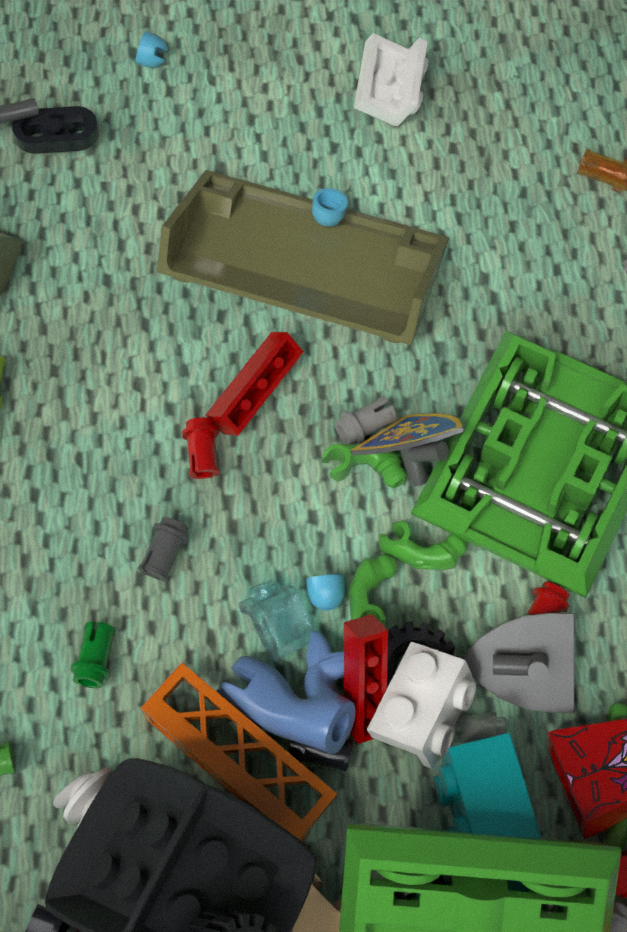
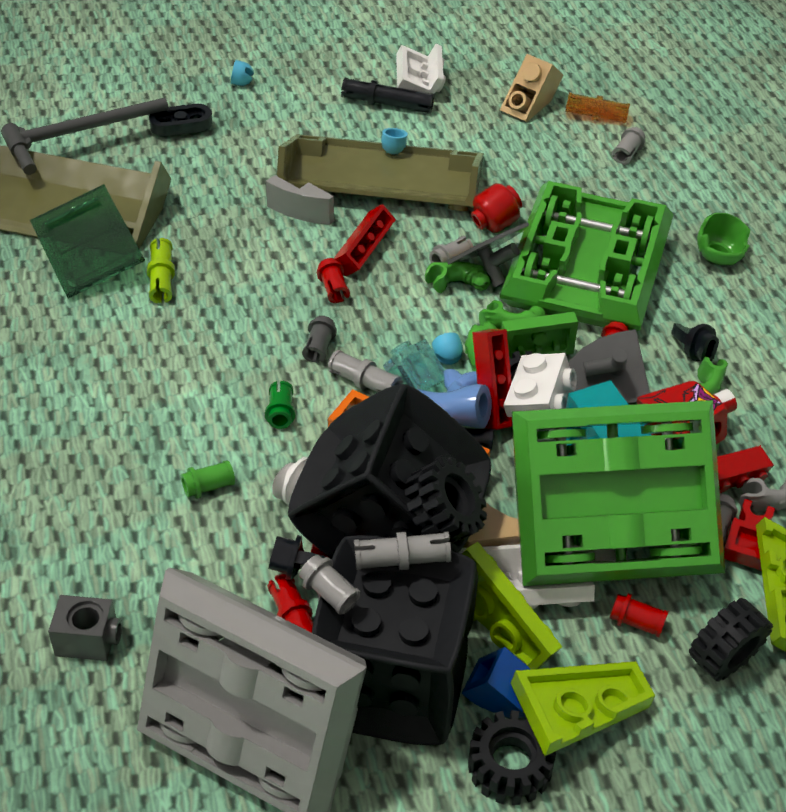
camera: 10 degrees left, 20 degrees down
(188, 307) = (305, 204): none -> light grey slope
(210, 619) = (363, 373): none -> light grey pin
(325, 111) = (393, 96): none -> black pin
(440, 351) = (496, 208): none -> red head
(442, 594) = (542, 334): none -> bright green bracket
(536, 133) = (531, 88): none -> tan slope

